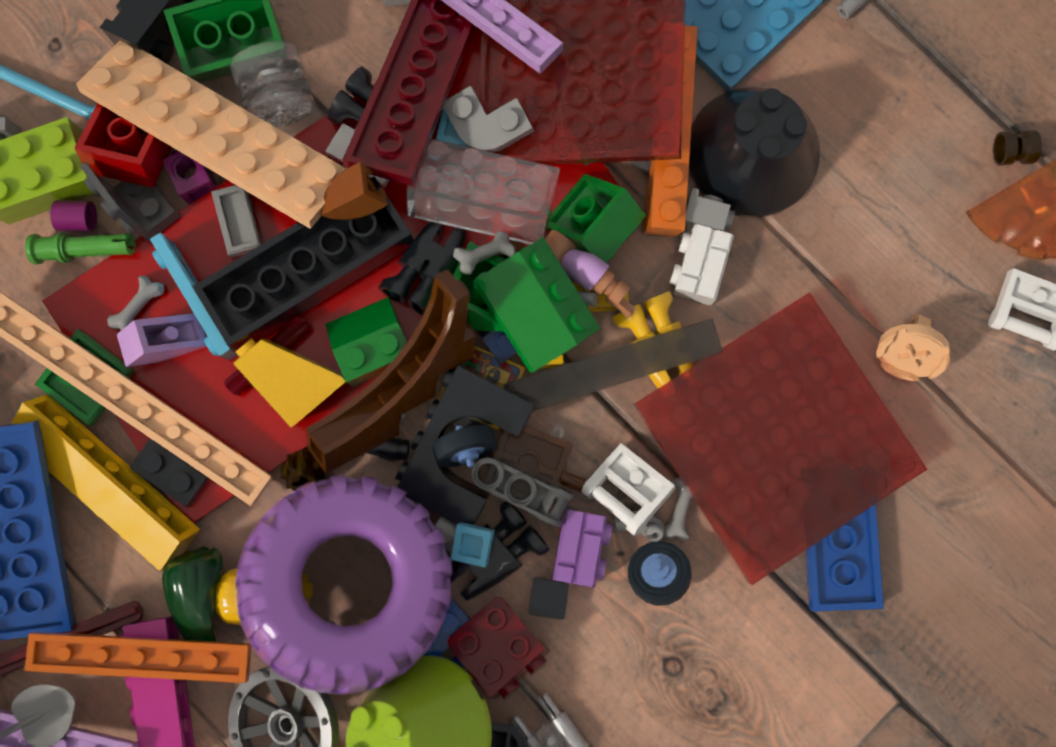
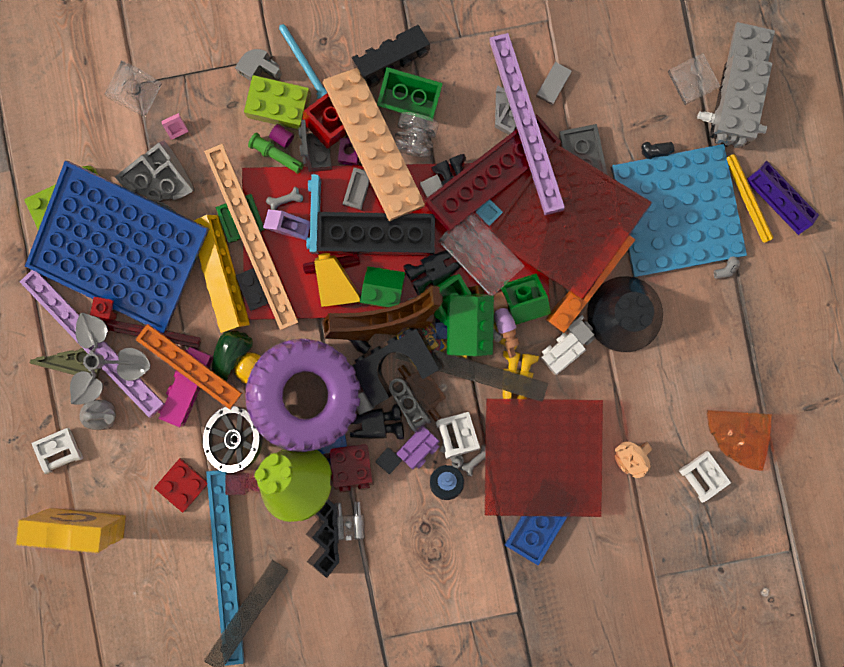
camera: 30 degrees right, 5 degrees up
(301, 469) = (313, 328): dark brown gear -> none
(352, 195) = (419, 218): dark orange brick -> none
(464, 446) = (395, 367): black wheel -> none
(469, 258) = (454, 283): light grey piece -> none
(472, 544) = (370, 414): medium azure plate -> none
(485, 131) = (501, 224): light grey plate -> none
(1017, 147) = (751, 395): dark brown wheel -> none

